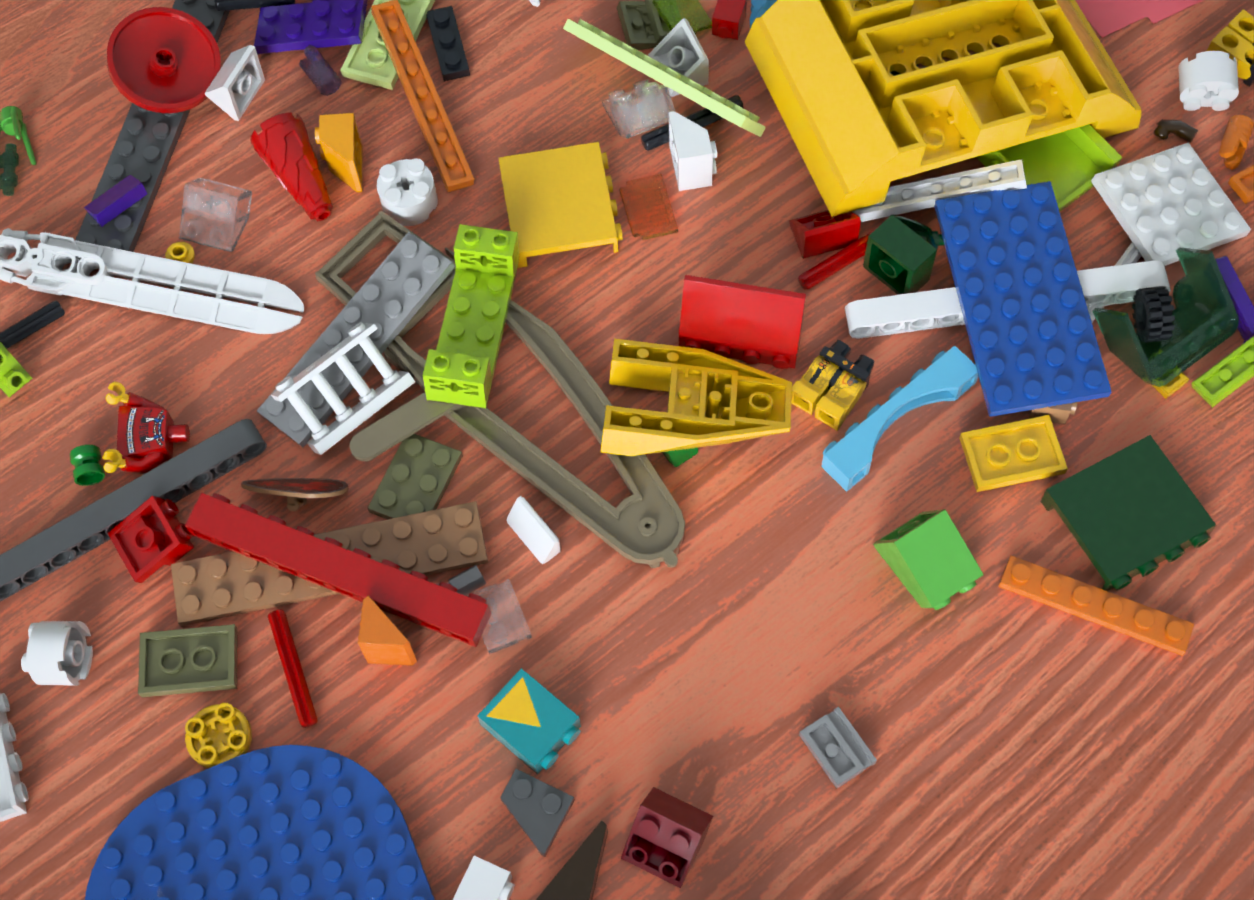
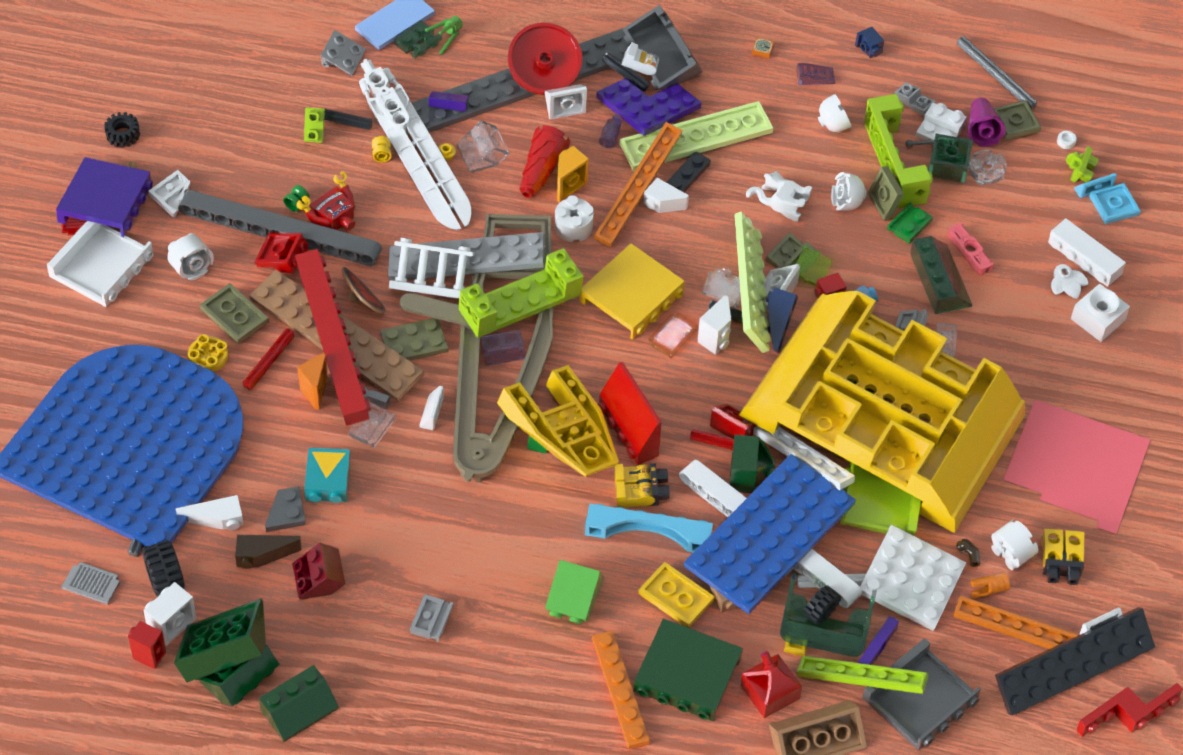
camera: 45 degrees right, 10 degrees down
(108, 319) = (381, 149): none -> yellow wheel
(461, 83) = (664, 197): none -> white slope
(517, 390) = (503, 347): none -> hinge
(732, 80) = (780, 310): none -> dark blue slope
(1215, 442) = (771, 685): none -> red piece

